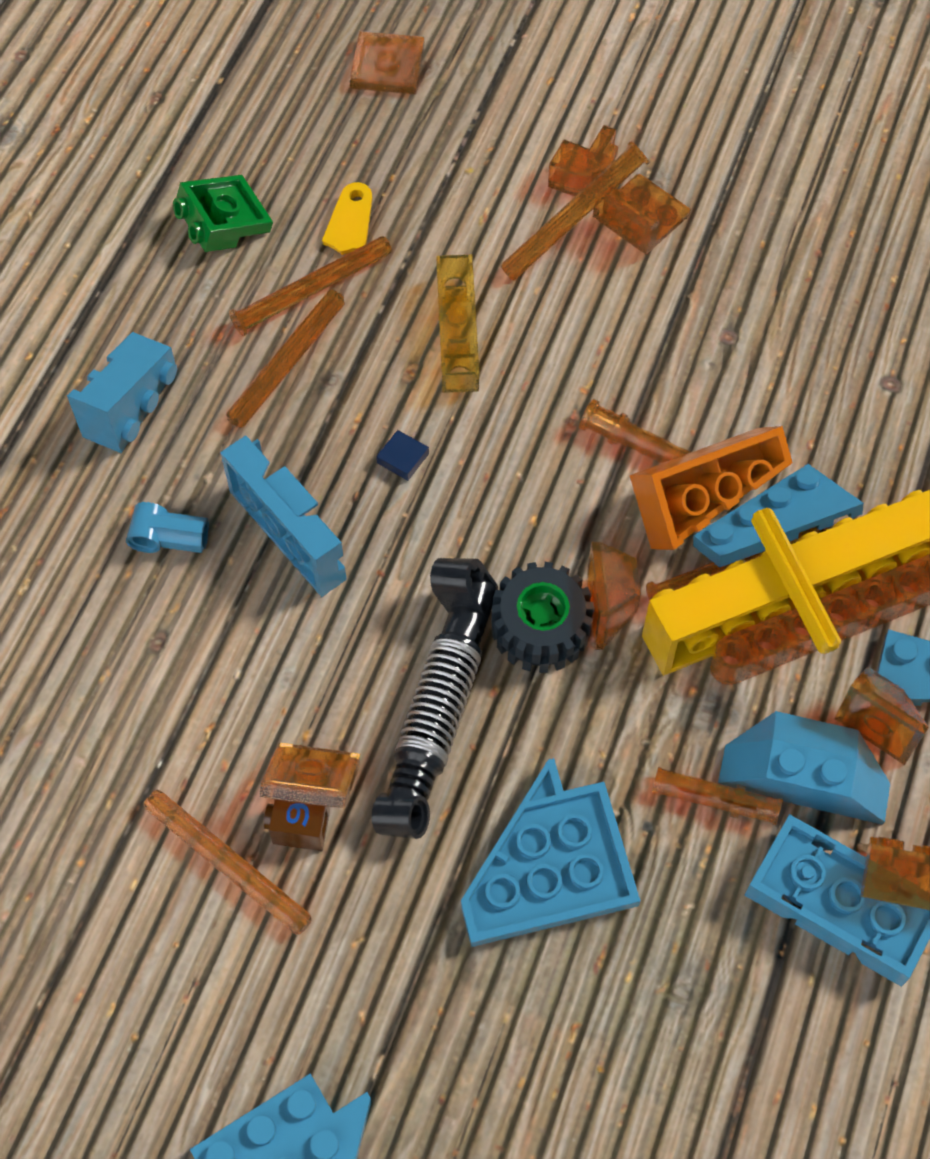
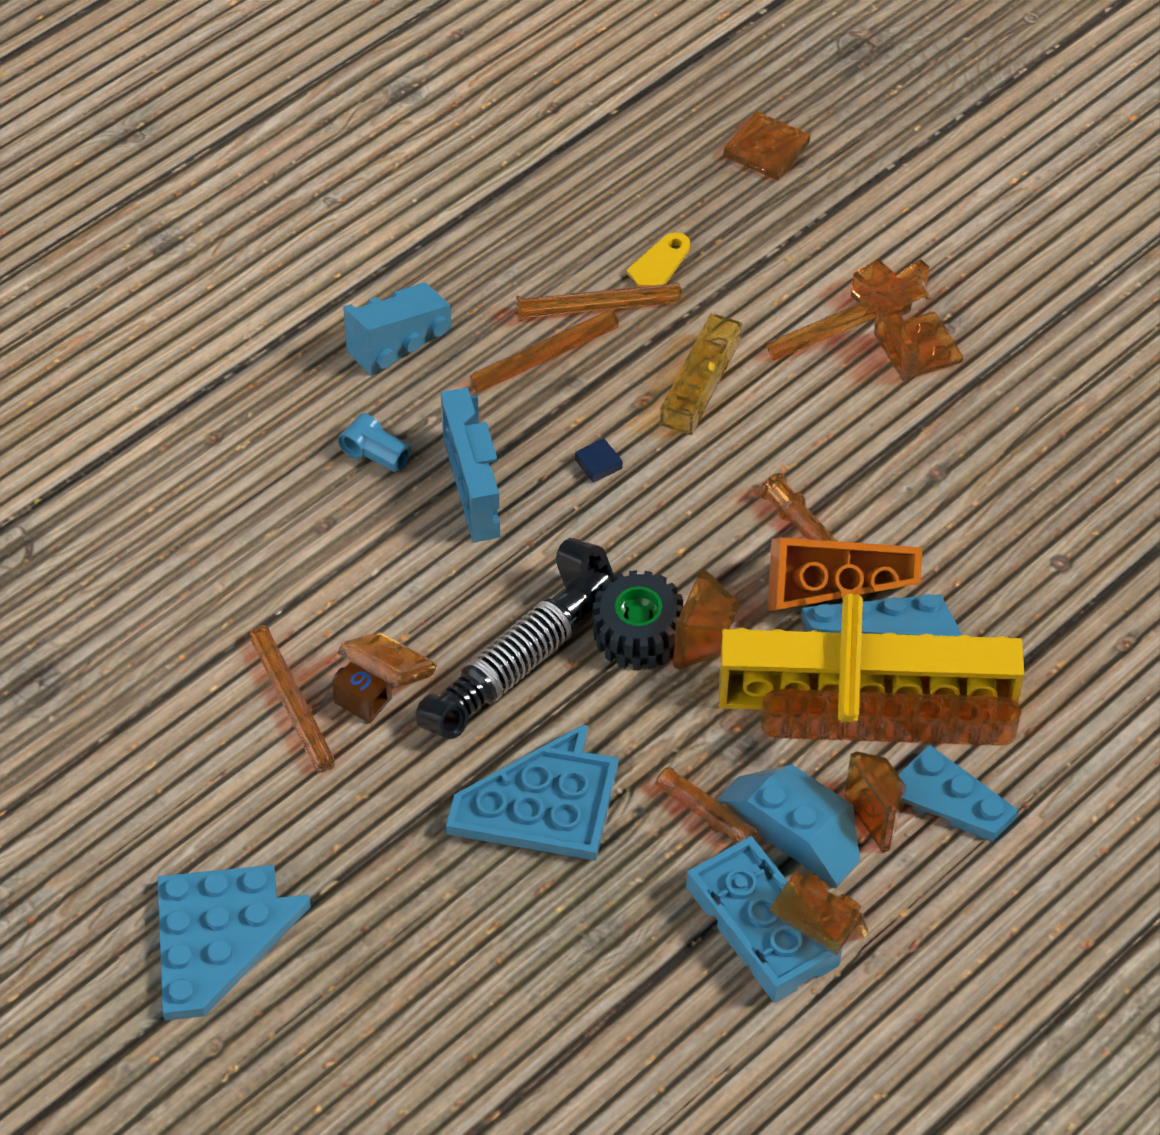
camera: 25 degrees right, 10 degrees down
(220, 211) = (551, 216): green plate -> none

